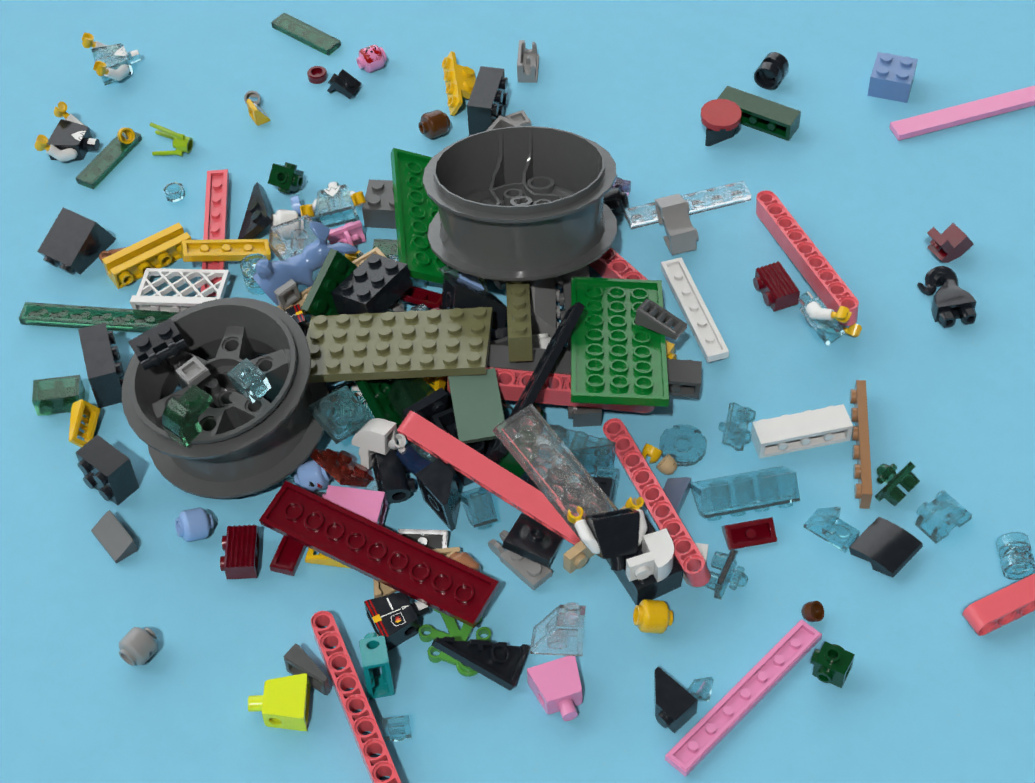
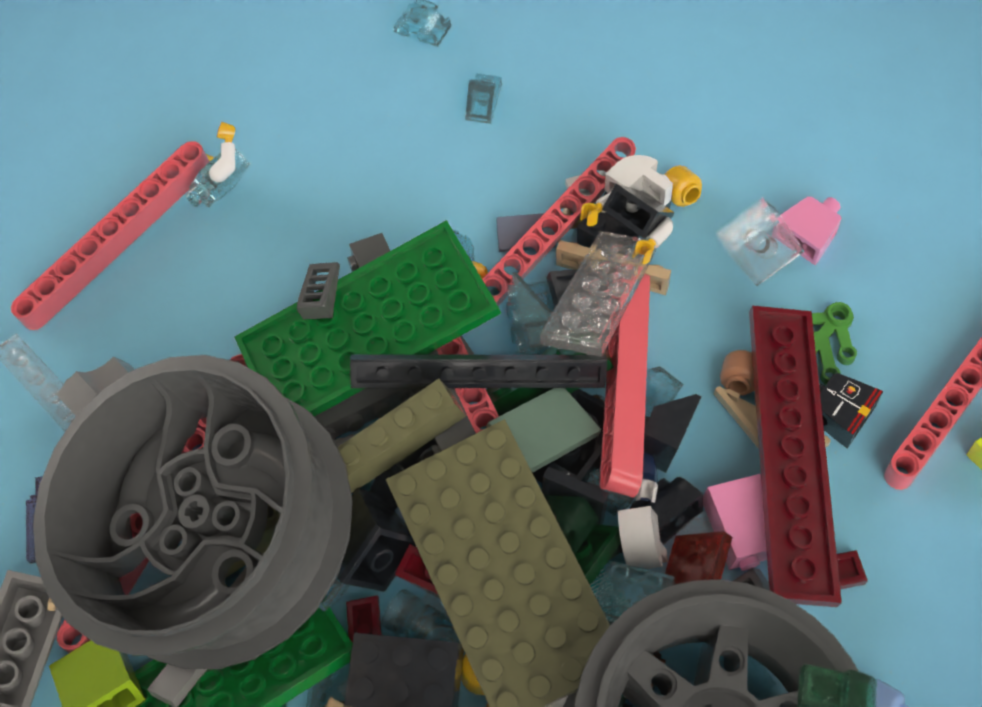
camera: 115 degrees left, 10 degrees up
(241, 552) = (876, 621): dark red brick -> none
(249, 380) = (737, 641): clear light blue brick -> none
(299, 662) = (961, 463): dark grey slope -> none
(374, 655) = (911, 386): teal torso -> none
(396, 728) = (956, 337): clear light blue plate -> none
(429, 538) = (722, 439): slope -> none
(492, 660) = (831, 289): black wing -> none
(527, 570) = (687, 330): light grey hinge -> none
(532, 541) = (669, 321): black plate -> none
(667, 465) = (478, 254): tan hinge -> none
(672, 702) = (762, 136): black slope -> none
(694, 310) = (246, 312): white plate -> none
(701, 689) = (732, 124): clear light blue slope -> none
(728, 573) = (587, 149): clear light blue hips -> none
(736, 426) = (417, 203): clear light blue hips -> none
(742, 698) = (711, 95): bright pink tile -> none
(745, 492) = (481, 173): clear light blue slope -> none
(749, 533) = (525, 158): dark red slope -> none
(776, 286) = (169, 252): dark red brick -> none
(801, 431) = (377, 156): white brick -> none
(813, 611) = (591, 77): reddish brown hinge -> none
(832, 664) = (642, 37): dark green brick -> none
(861, 450) = (365, 104): medium nougat plate -> none
(886, 546) = (482, 51): black slope -> none
(903, 477) = (402, 64): clear green hips -> none
(949, 244) = (38, 121): brick -> none
(950, 300) = (125, 98): black hips -> none

